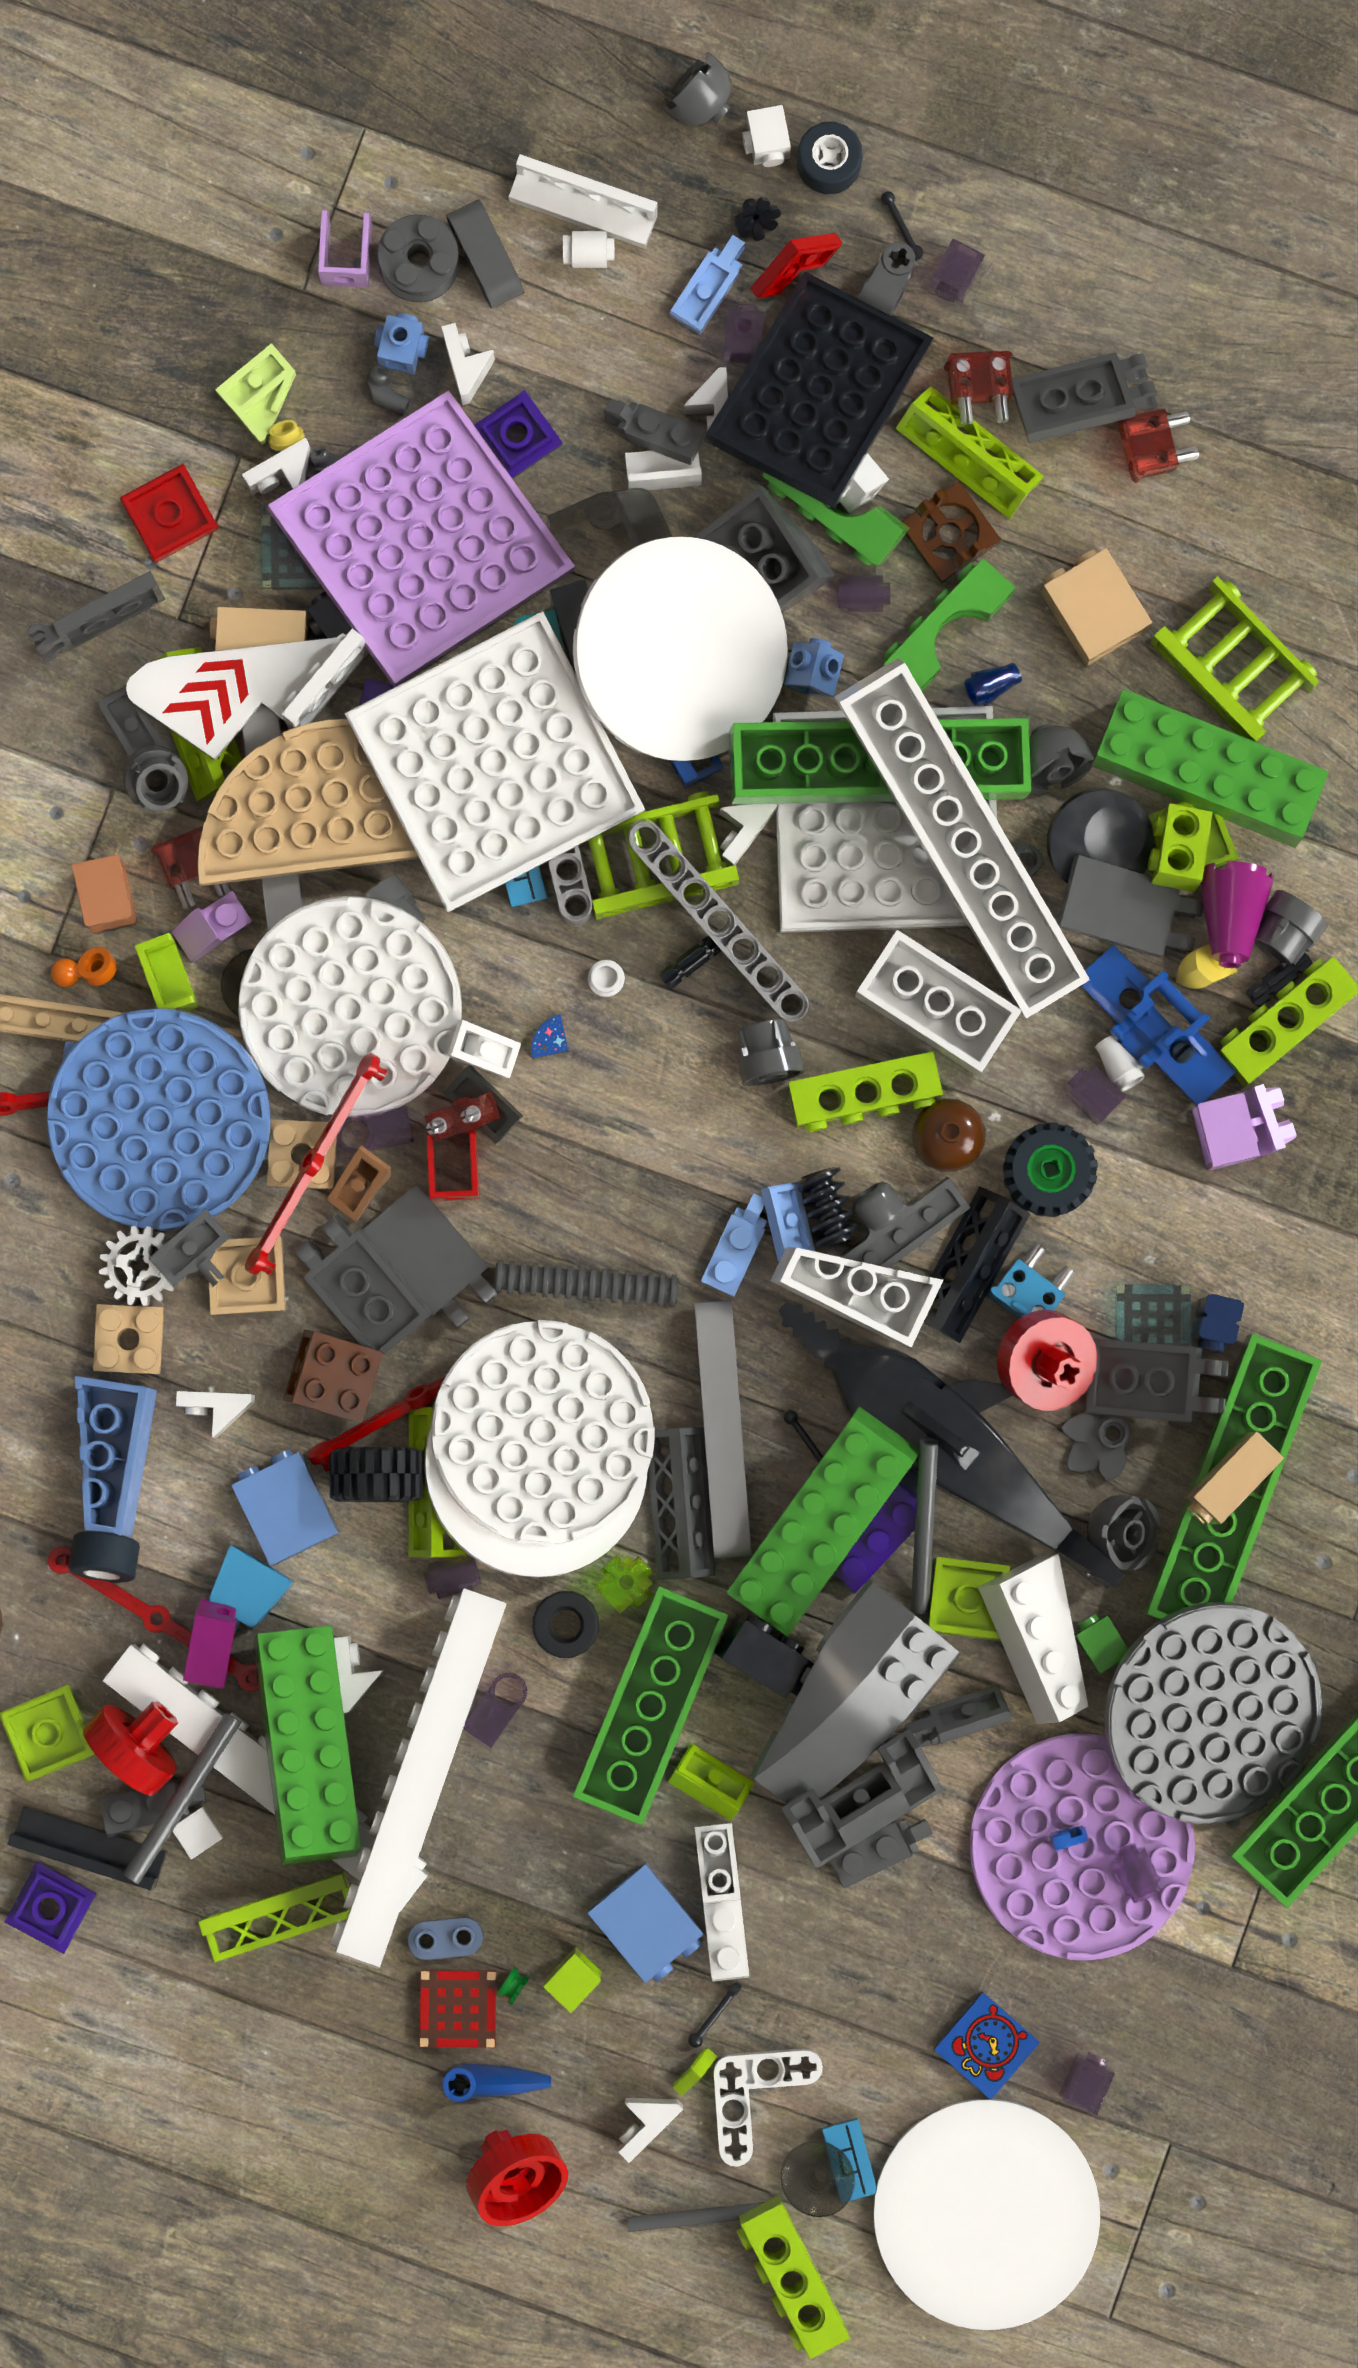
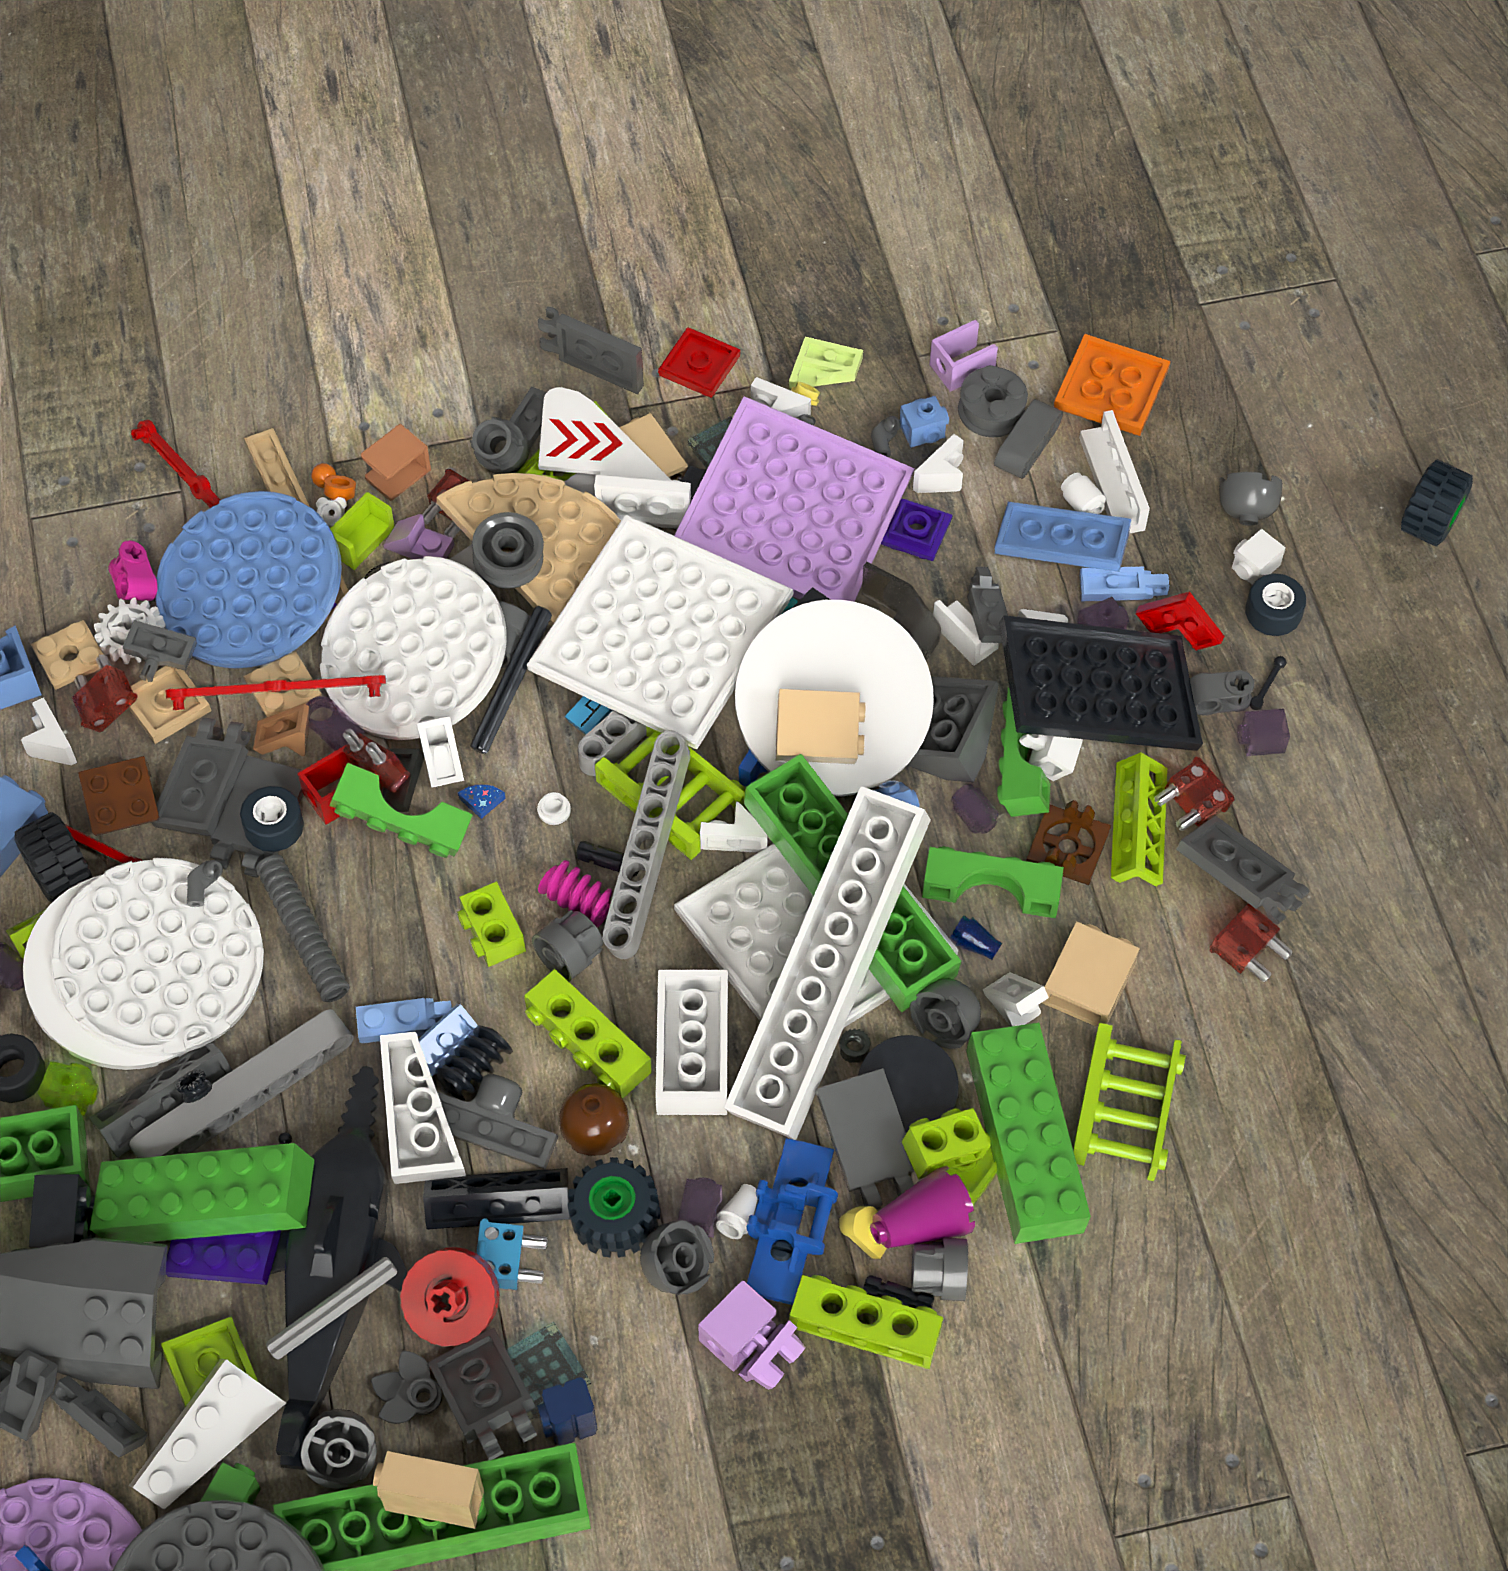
camera: 60 degrees right, 25 degrees down
(77, 1230) = (133, 573): none -> dark pink piece
(128, 998) = (325, 505): none -> white plate
(209, 1332) = (103, 697): none -> clear red piece
(311, 877) = (507, 568): none -> dark grey wheel
(445, 933) = (510, 680): none -> black axle
(455, 1235) = (271, 818): none -> black wheel
(473, 125) = (1114, 379): none -> orange plate
(494, 1351) = (200, 879): none -> dark grey arm
(565, 1098) = (360, 796): none -> bright green arch
(622, 302) = (1063, 536): none -> medium blue tile
(694, 1474) = (194, 1086): none -> black bush
(697, 1099) = (496, 922): none -> lime brick
(708, 685) = (819, 726): none -> tan brick
(715, 1011) = (576, 893): none -> dark pink piece
(756, 217) = (1193, 581): black plant -> none
(924, 1525) = (247, 1276): dark grey piece -> none
(1009, 1468) = (331, 1308): none -> light grey axle
(1075, 688) = (1016, 998): none -> white slope
(1135, 1146) = (677, 1257): none -> dark grey cylinder

